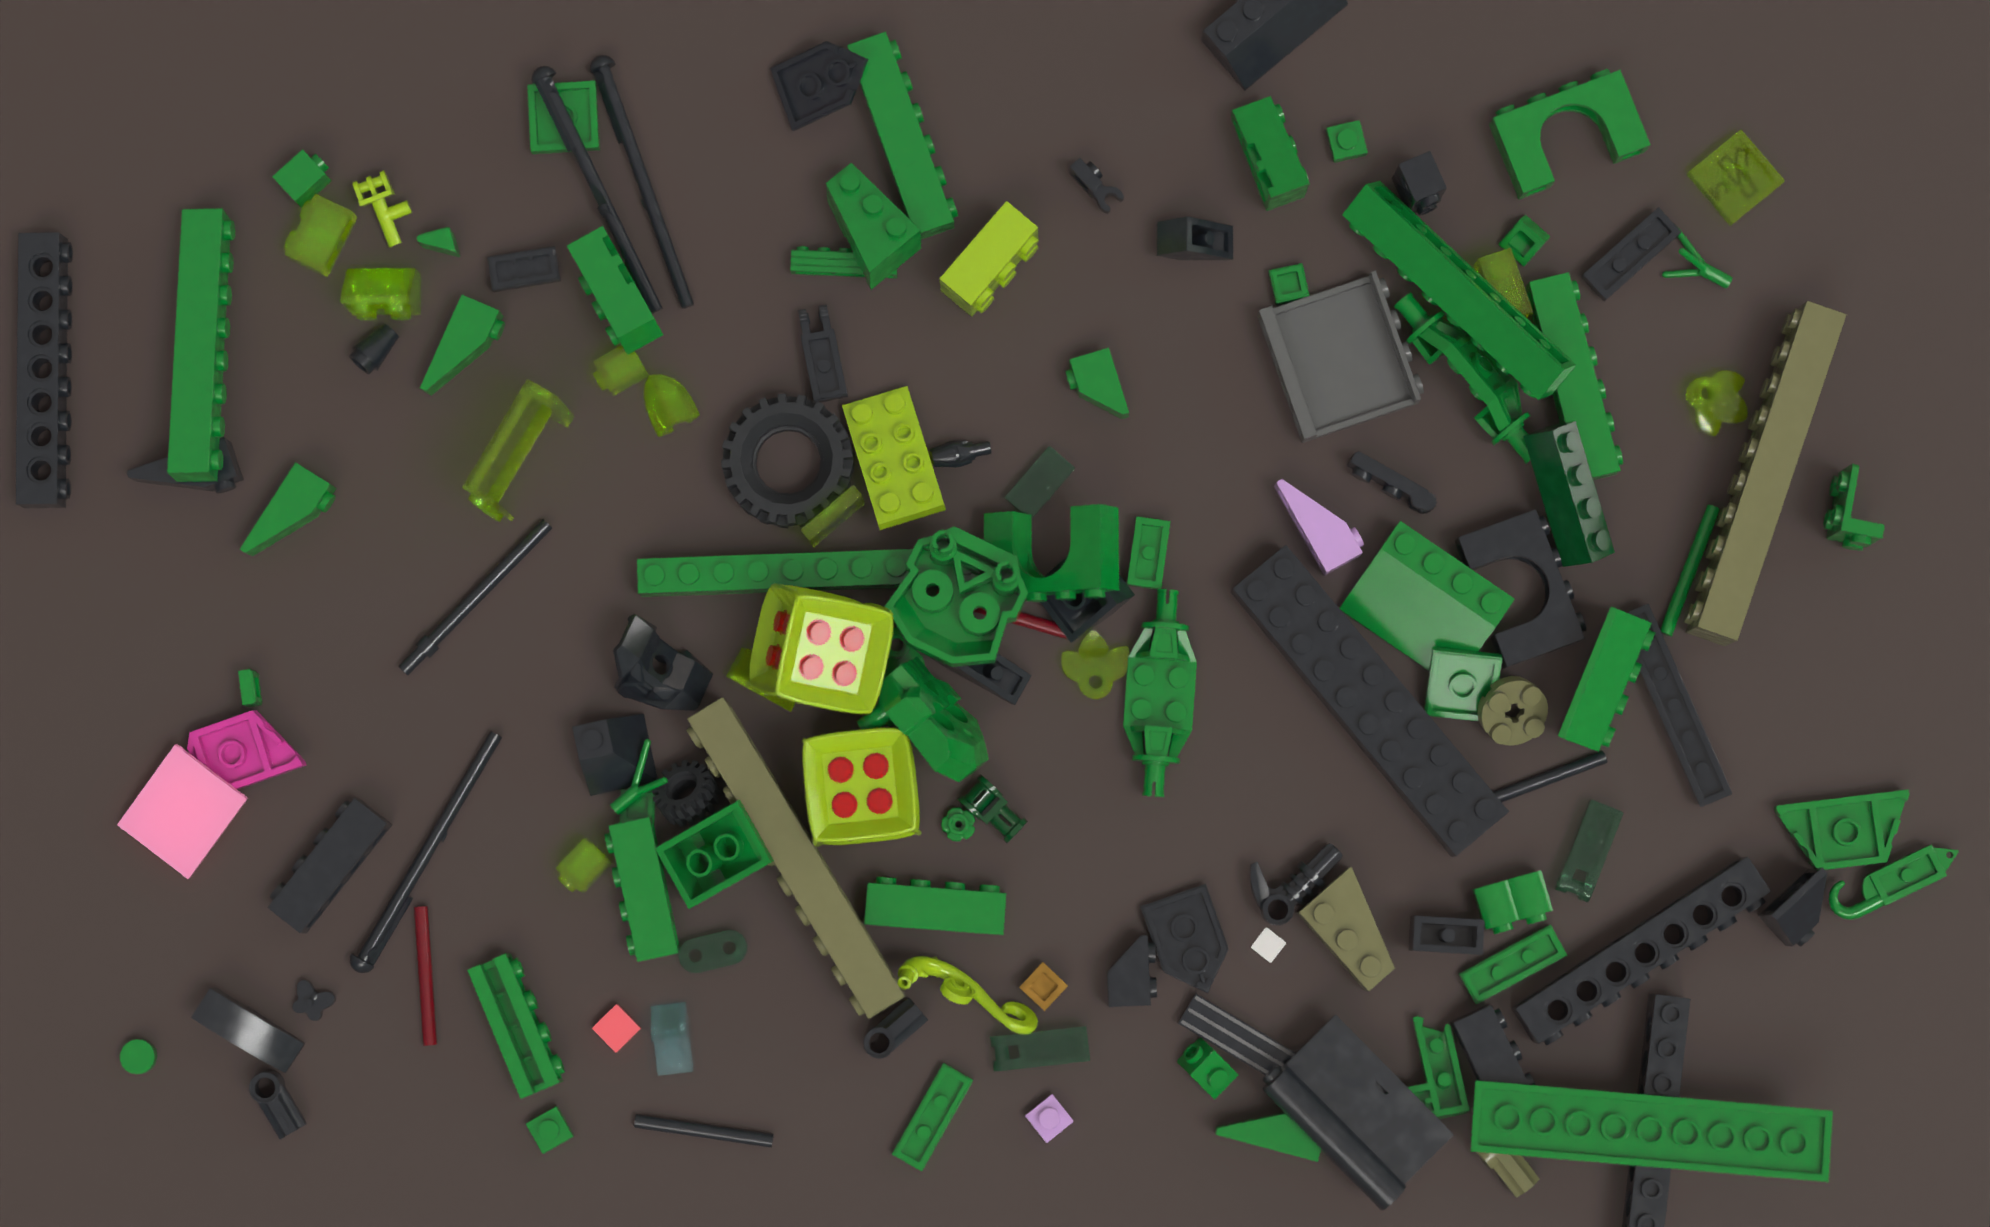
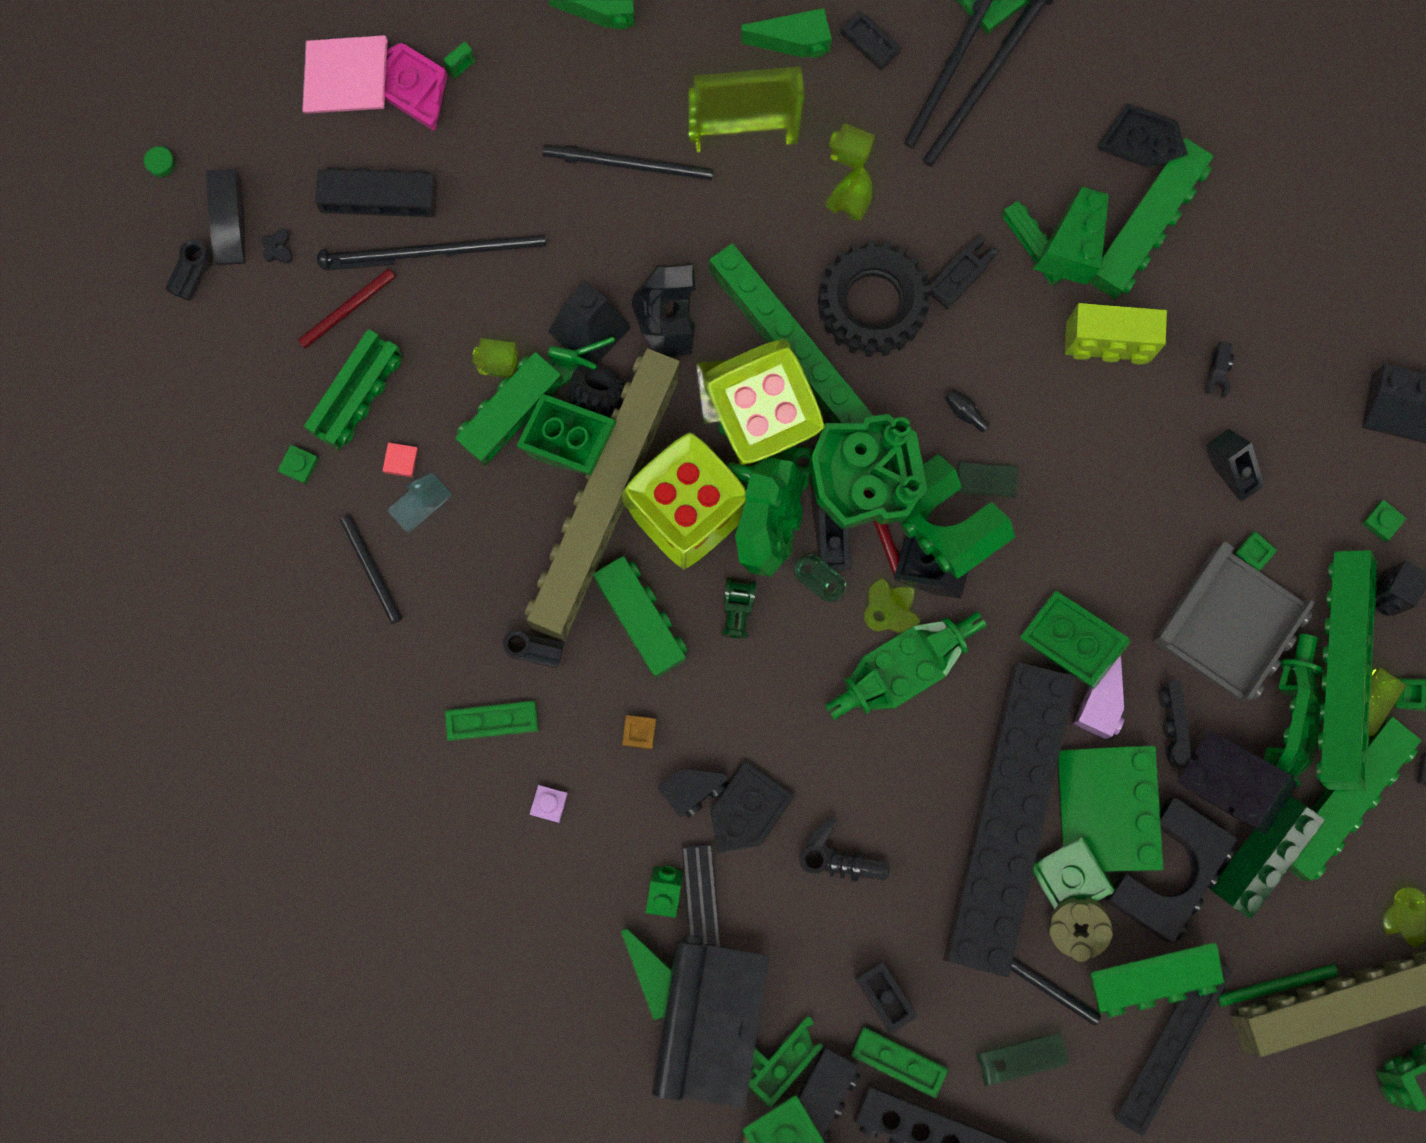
camera: 45 degrees right, 5 degrees down
(614, 291) = (902, 100): green wedge -> none
(713, 952) = (499, 487): clear green plate -> none
(833, 516) = (859, 352): clear neon green tile -> none
(893, 458) = (929, 366): lime plate -> none
(962, 989) = (596, 674): lime plant -> none
(967, 820) = (710, 600): green plate -> none
(1020, 711) = (819, 578): none -> clear green beam
(1041, 1048) = (594, 762): clear green plate -> none
(1098, 382) = (1087, 467): green slope -> none
(1148, 553) = (996, 588): green plate -> none
(1250, 518) = (1075, 639): none -> green plate
(1268, 945) = (783, 872): white sticker -> none
(1270, 153) = (1336, 473): green wedge -> none
(1348, 929) = (836, 922): olive wedge -> none
(1486, 472) = (1237, 780): none -> black piece
(1512, 901) = (945, 1028): green brick -> none

